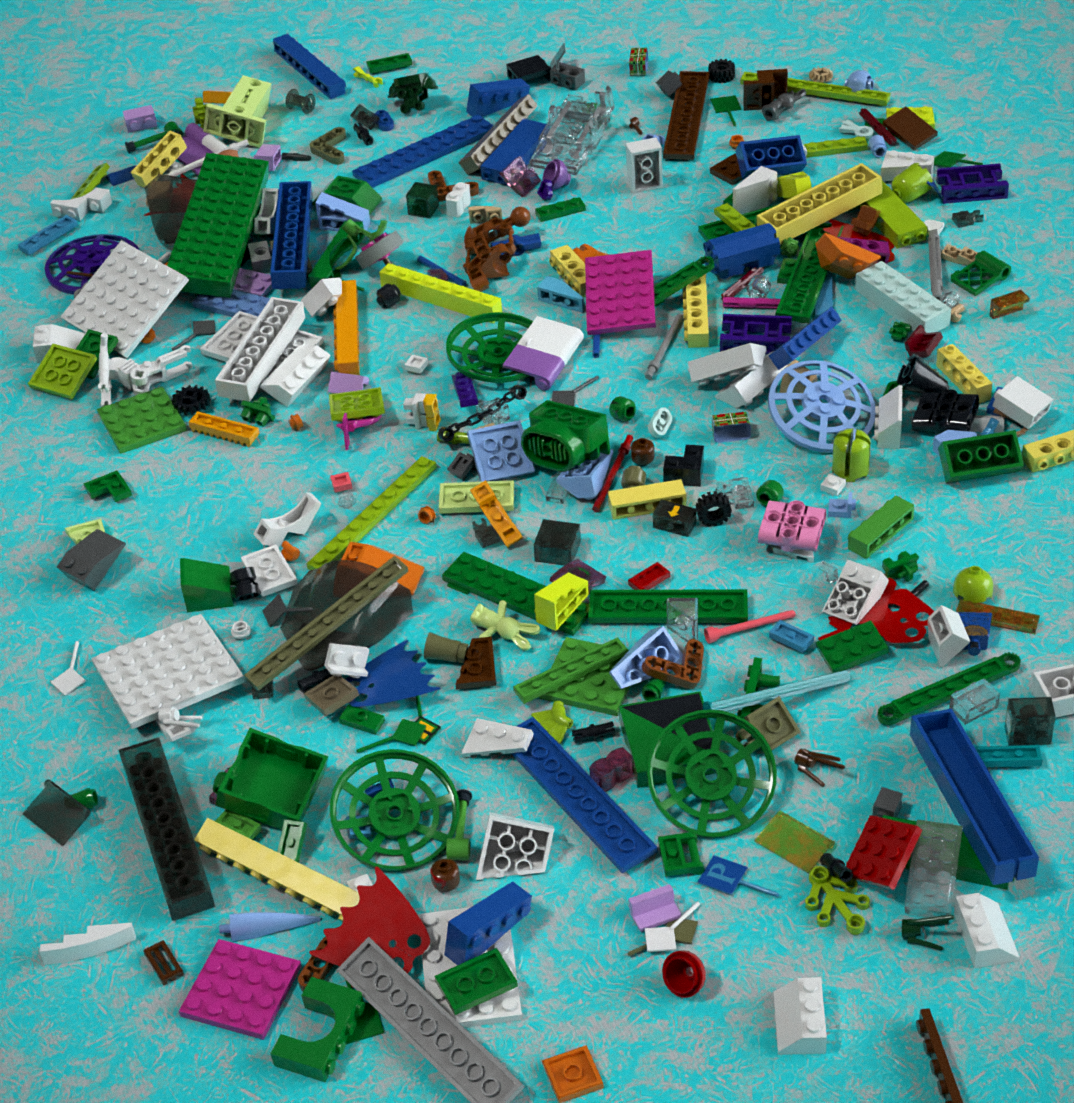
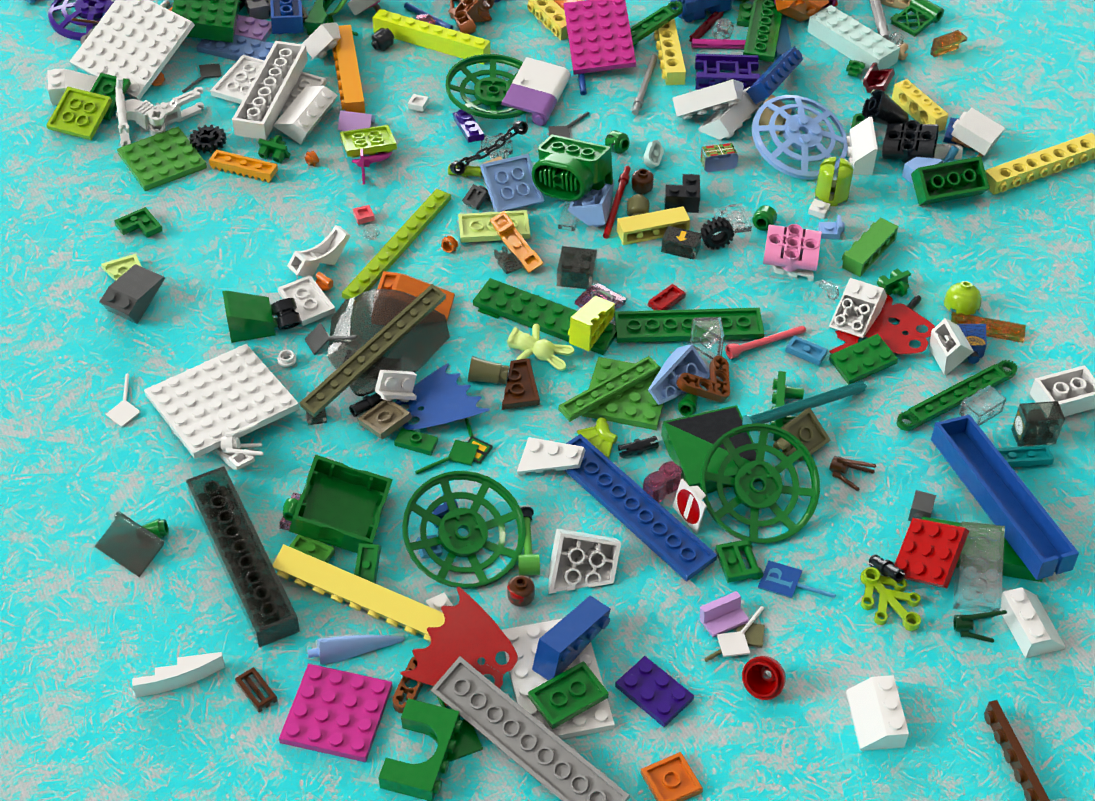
camera: 10 degrees left, 5 degrees up
(424, 411) = (434, 146): hips -> none
(560, 294) = (541, 36): medium azure slope -> none
(569, 983) = (654, 691): none -> dark purple plate
(634, 793) = (689, 504): none -> piece
(794, 841) = (841, 544): clear yellow piece -> none

